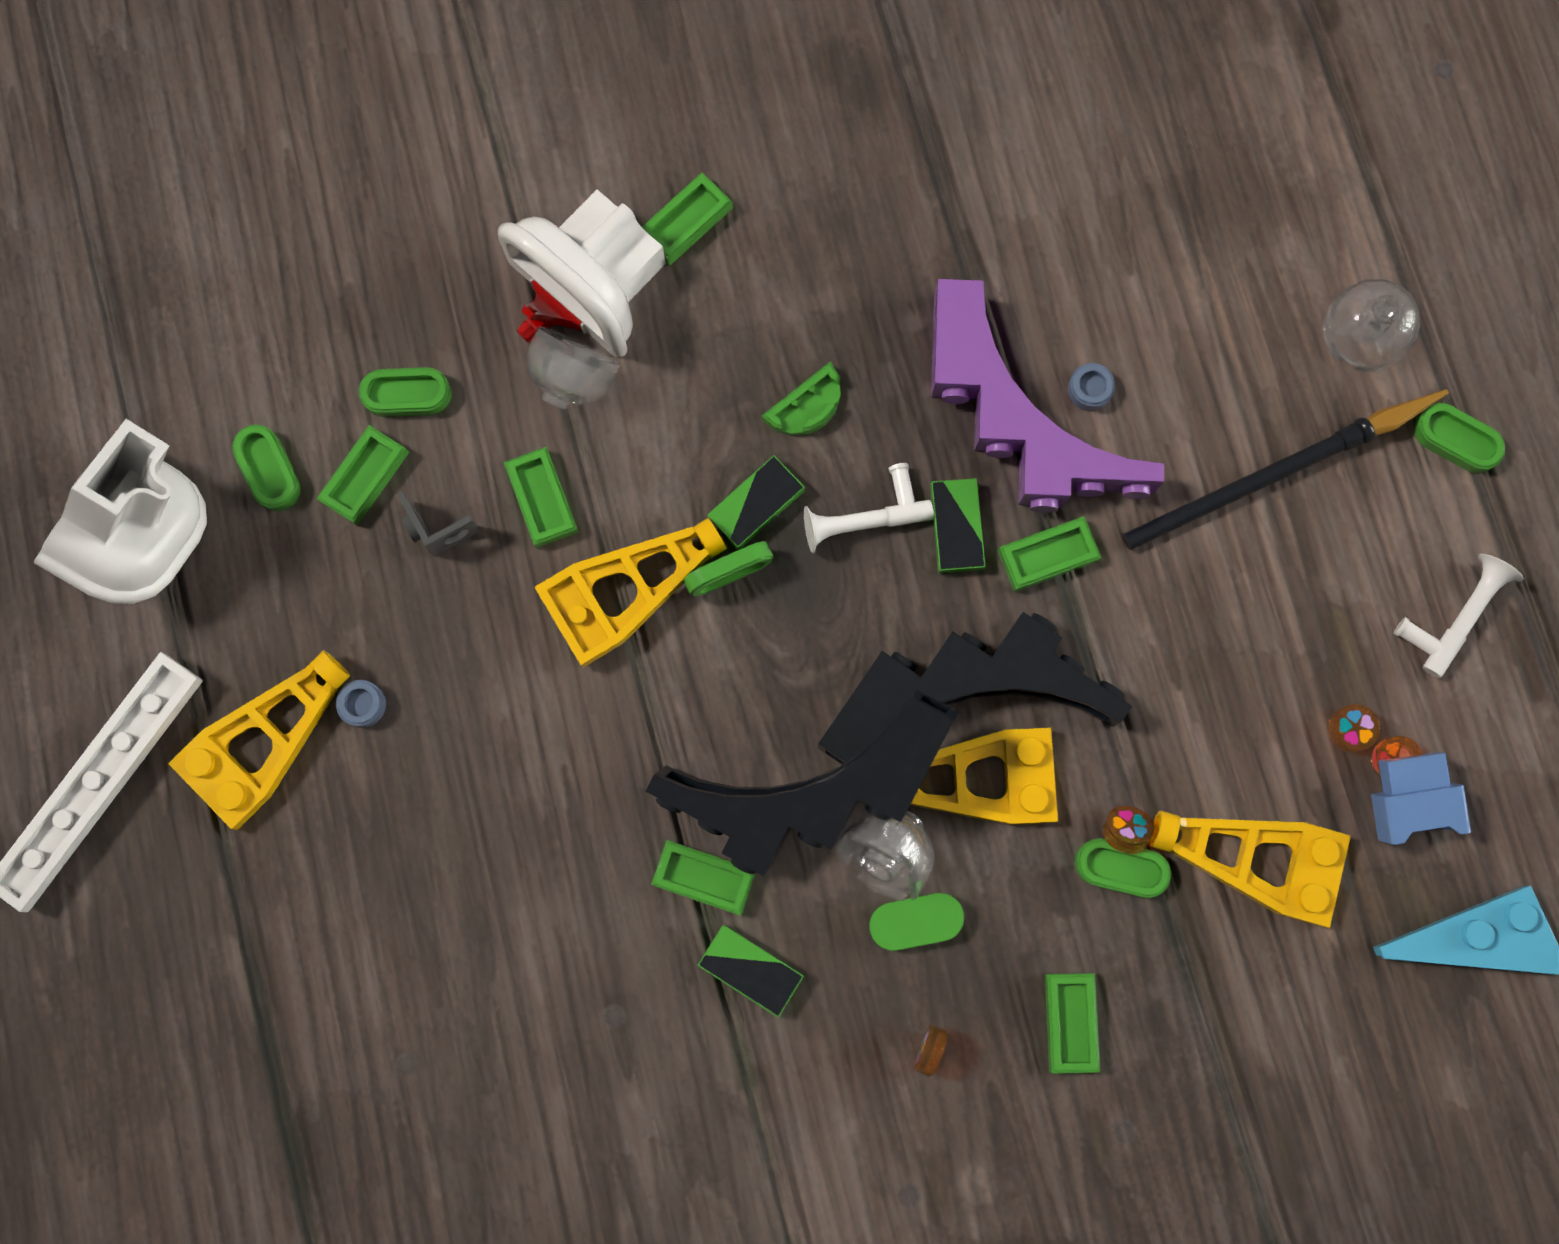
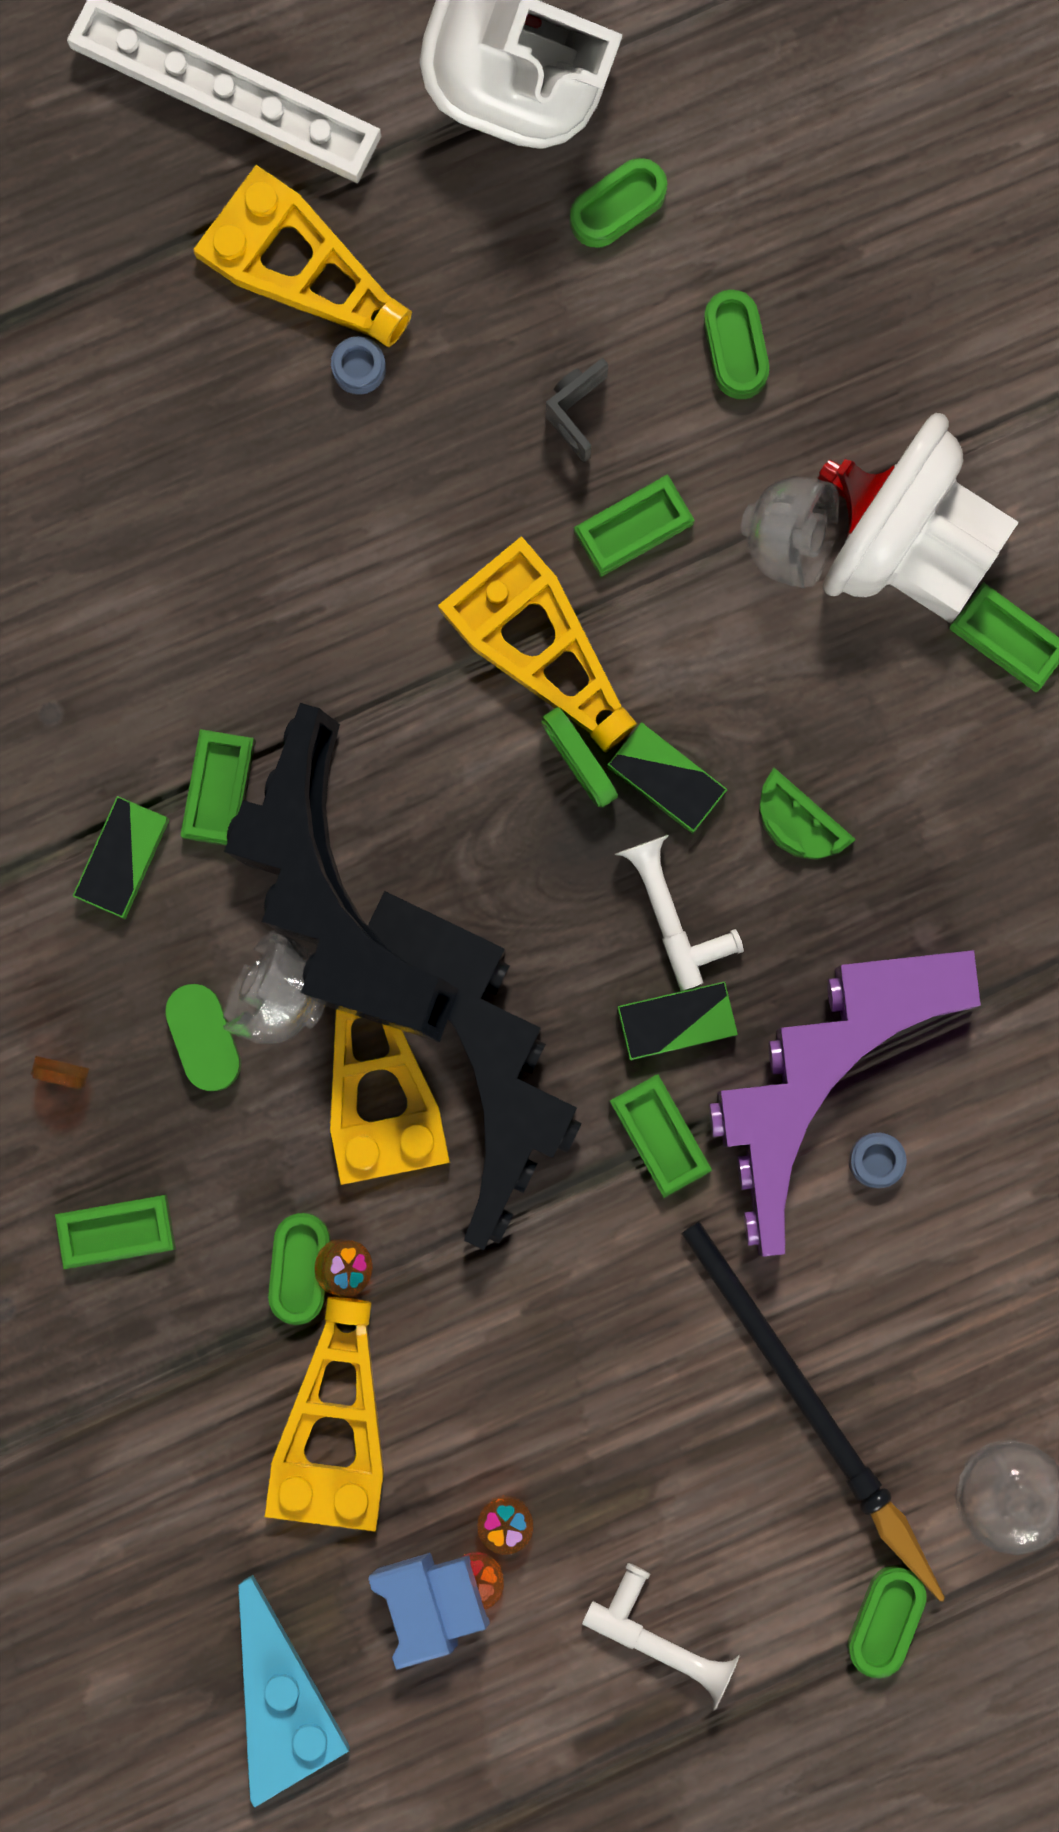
camera: 80 degrees right, 5 degrees up
(363, 475) = (627, 315): bright green tile -> none

